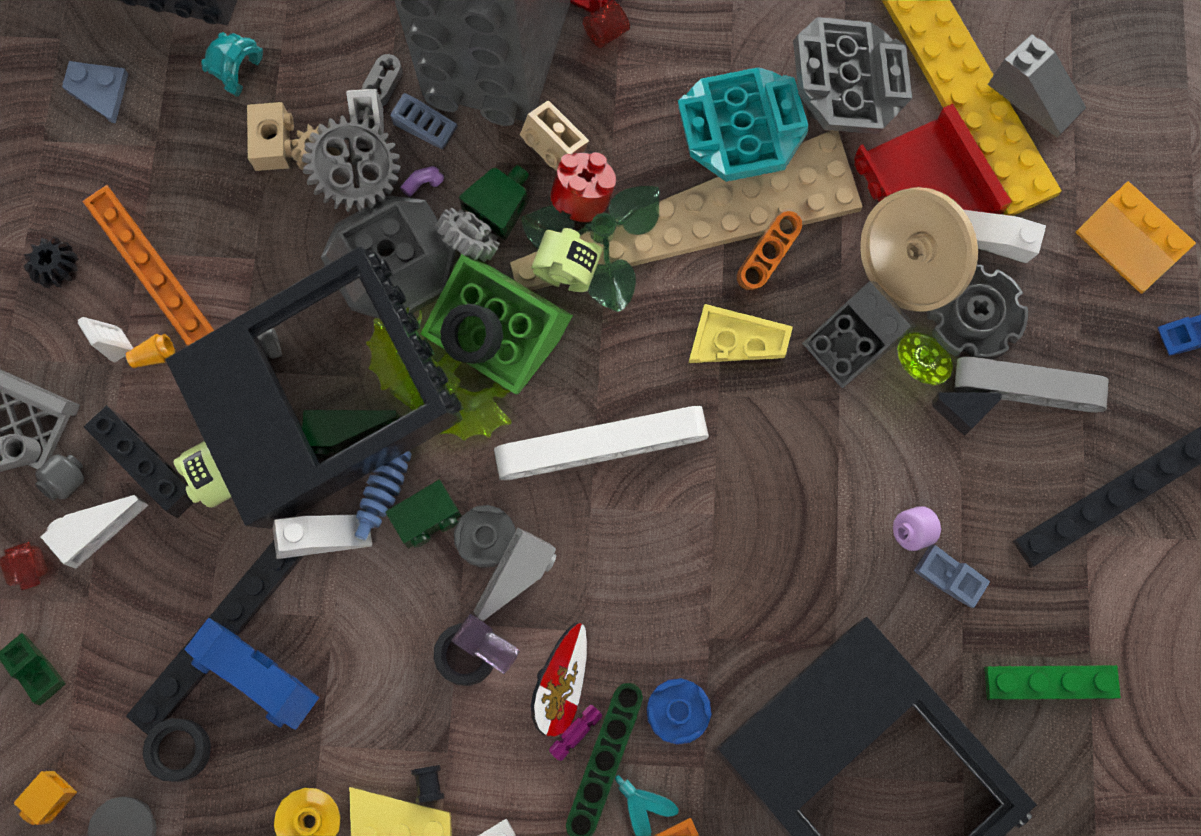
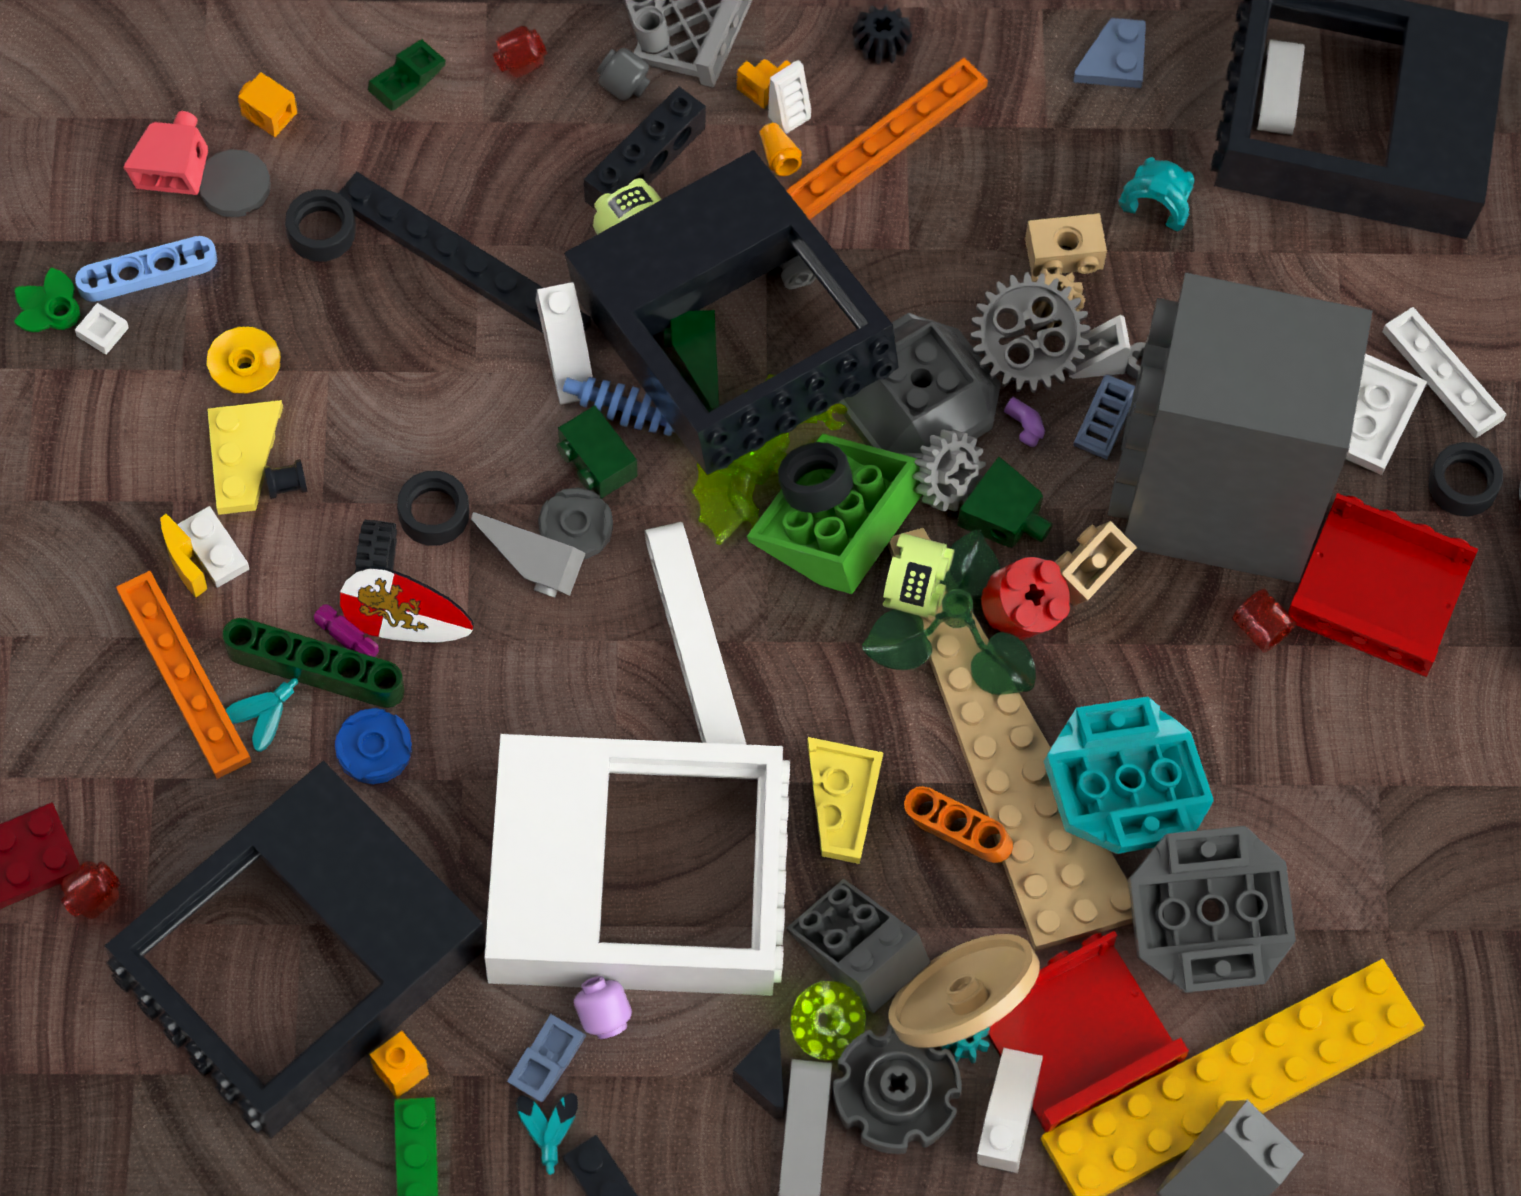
camera: 80 degrees right, 10 degrees down
(82, 362) = (755, 81): none -> light orange panel
(85, 531) = (559, 105): white slope -> none
(252, 673) = (405, 289): blue brick -> none
(480, 640) = (445, 511): clear purple piece -> none
(507, 702) = (376, 544): none -> black tyre
(793, 558) = (552, 866): none -> white panel
(964, 693) = (399, 1064): none -> light orange brick
(1011, 580) = (544, 1133): none -> teal piece

